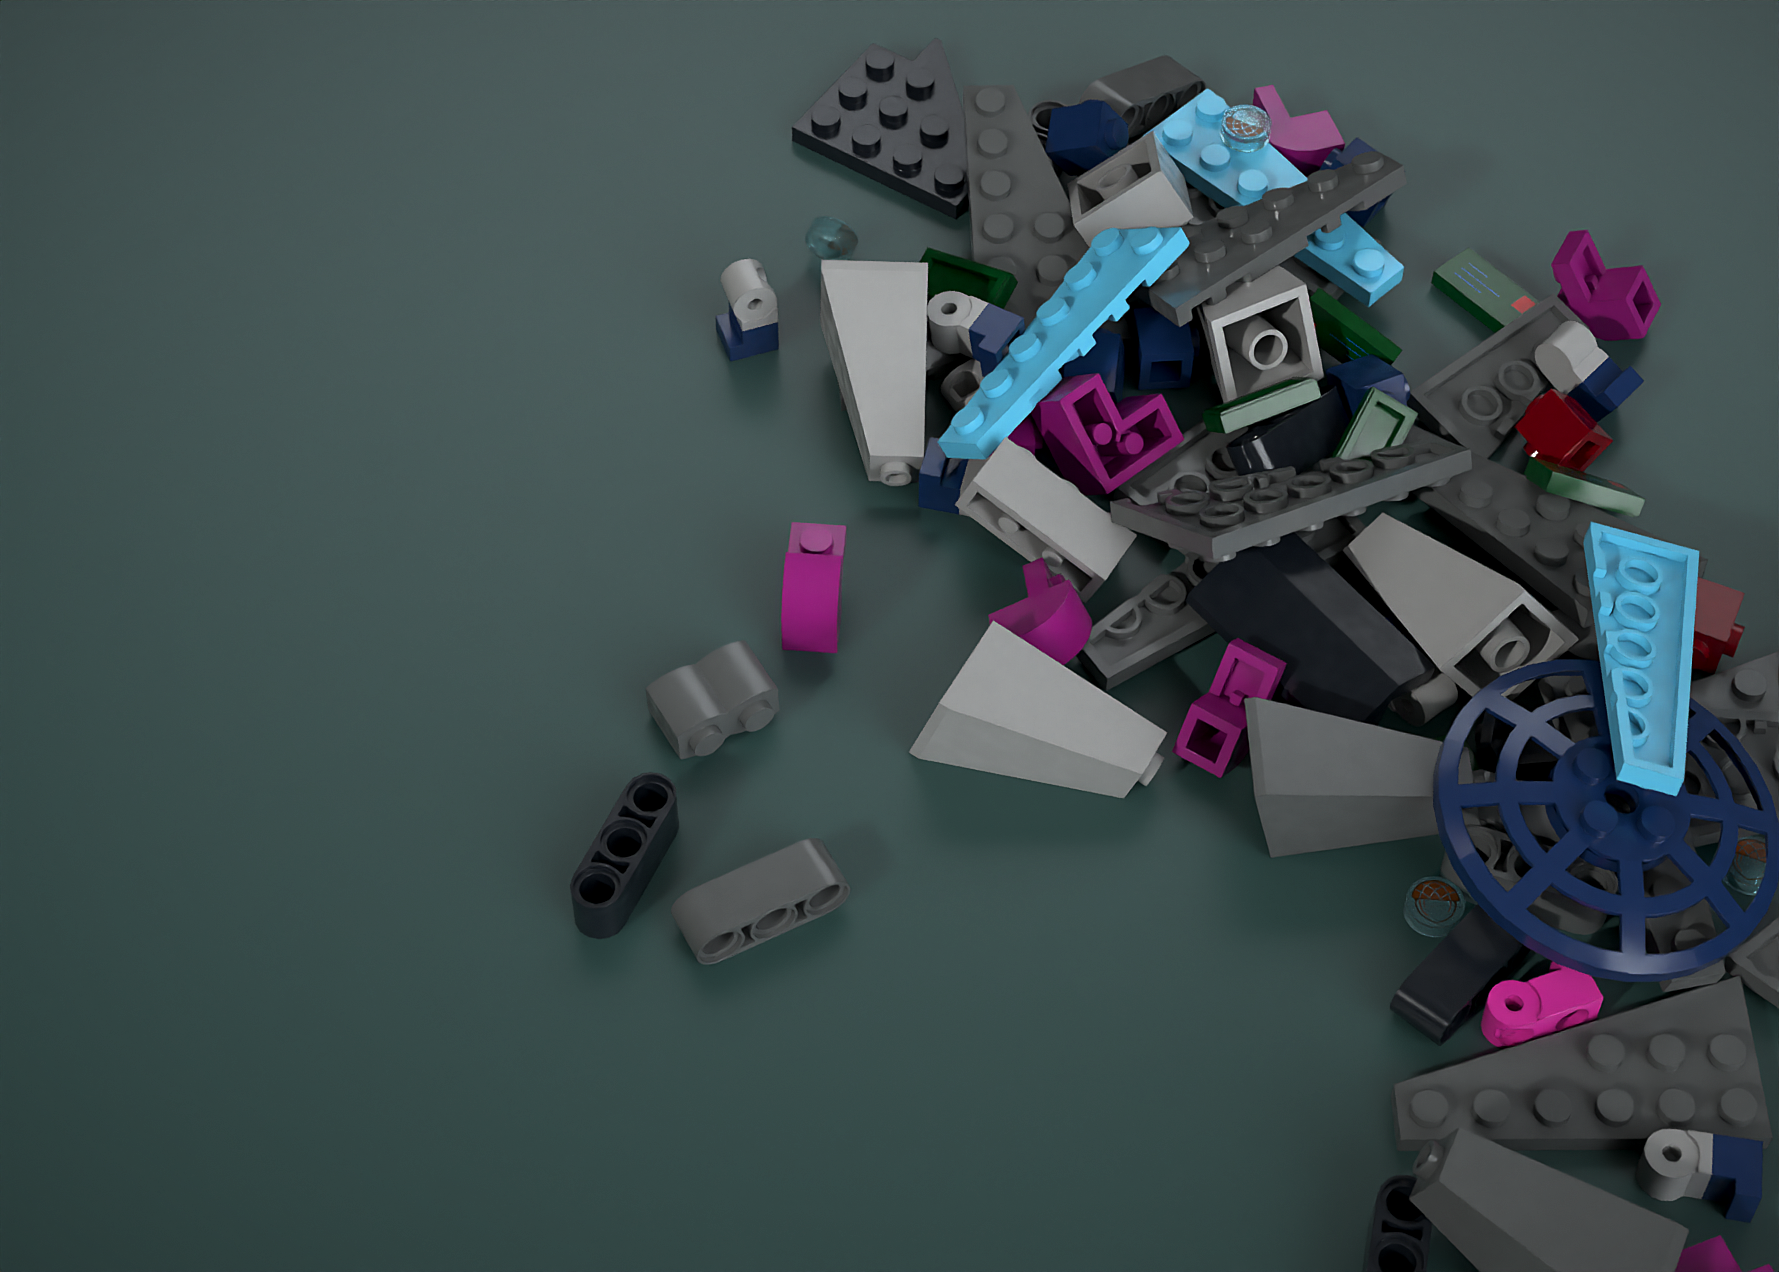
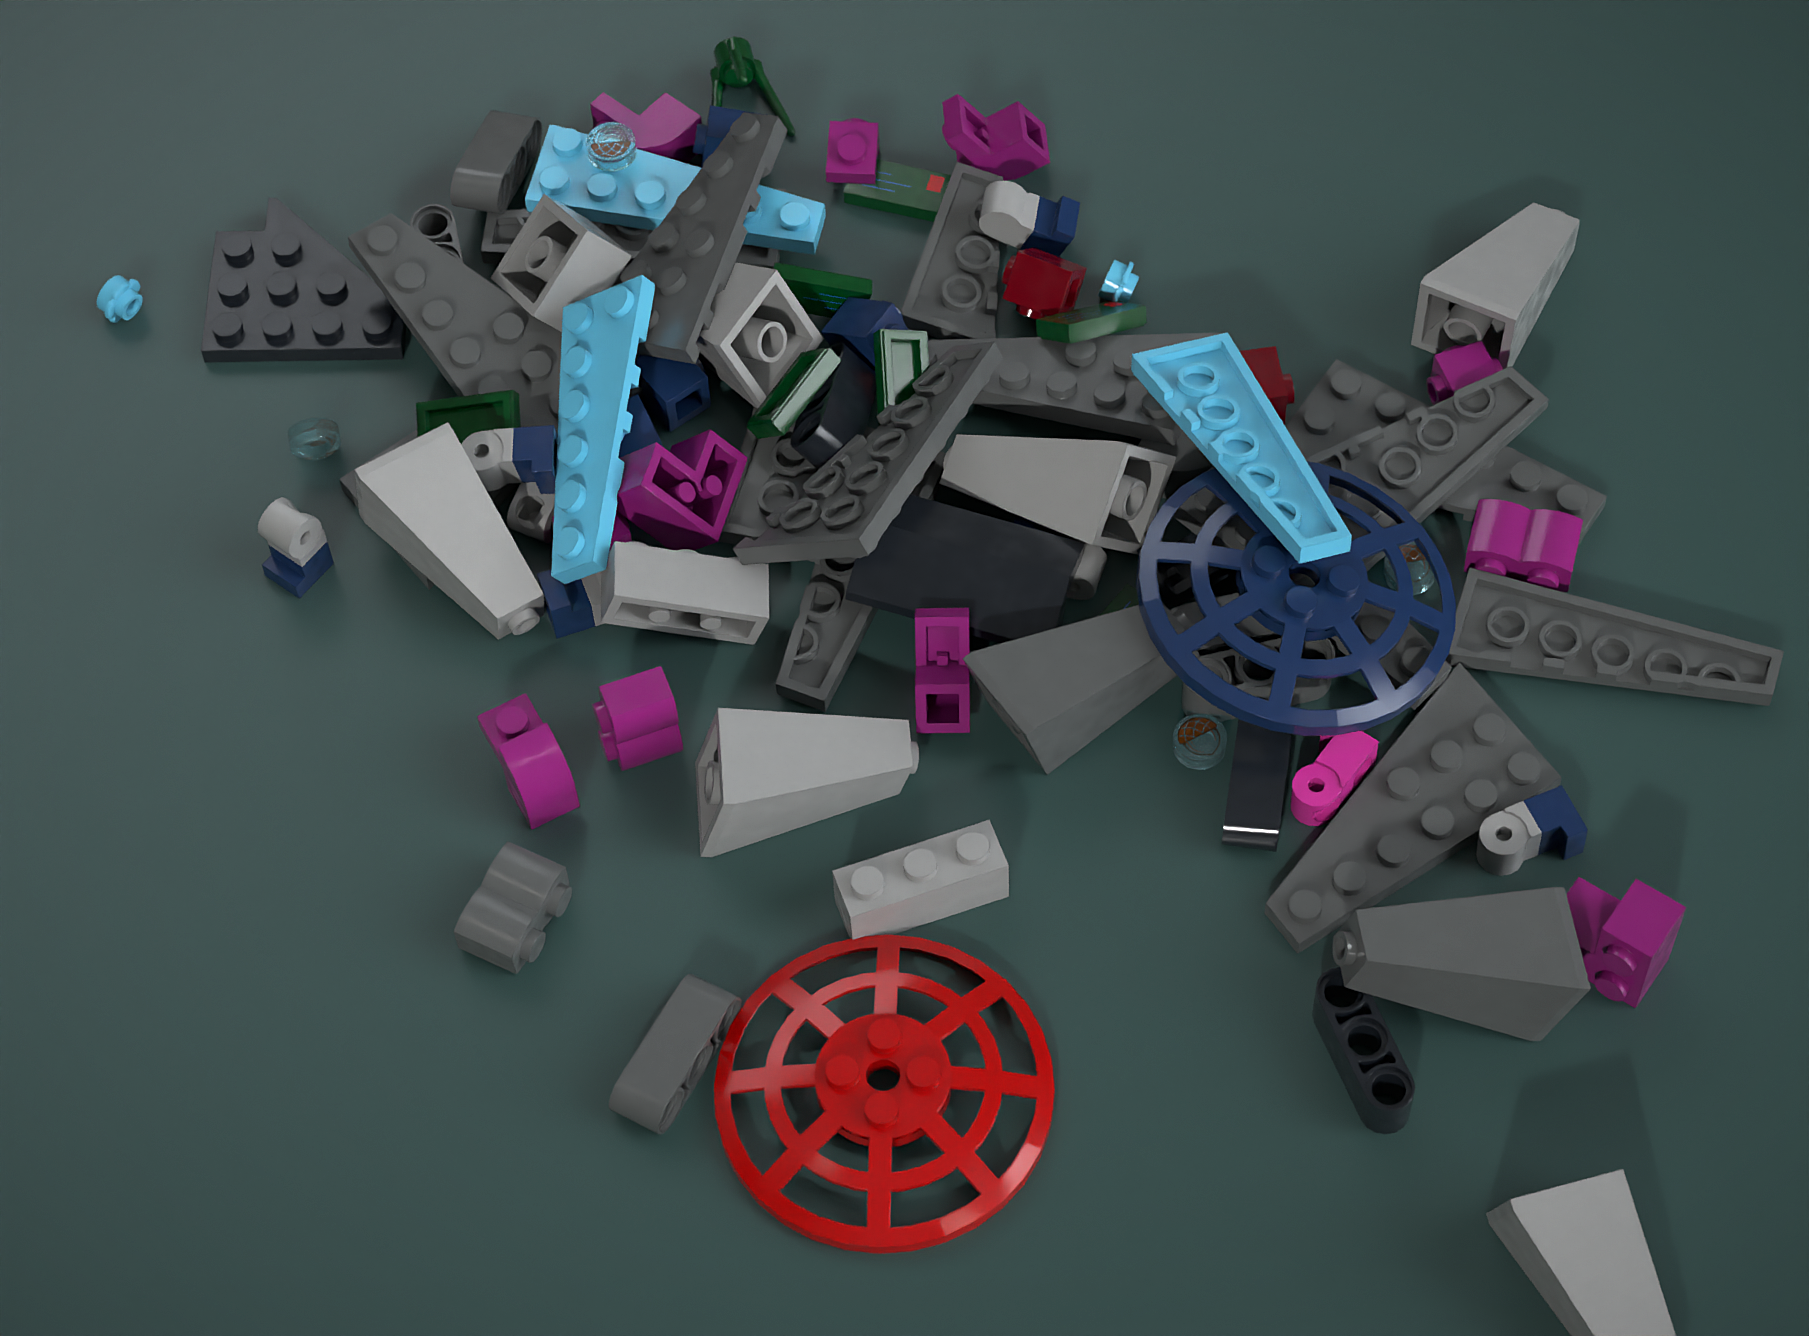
camera: 30 degrees left, 5 degrees up
(625, 878) = (539, 1106): black beam -> none
(757, 56) = (119, 298): none -> medium azure plate
(923, 1068) = (886, 1116): none -> red dish
(927, 600) = (638, 719): none -> magenta brick
(1050, 616) = (747, 675): magenta brick -> none
(1080, 880) = (922, 882): none -> light grey brick
(1084, 136) = (481, 226): dark blue brick -> none
(1408, 127) = (737, 69): none -> dark green plant
(1464, 239) = (852, 151): none -> magenta bracket
(1637, 470) = (1119, 282): none -> medium azure plate

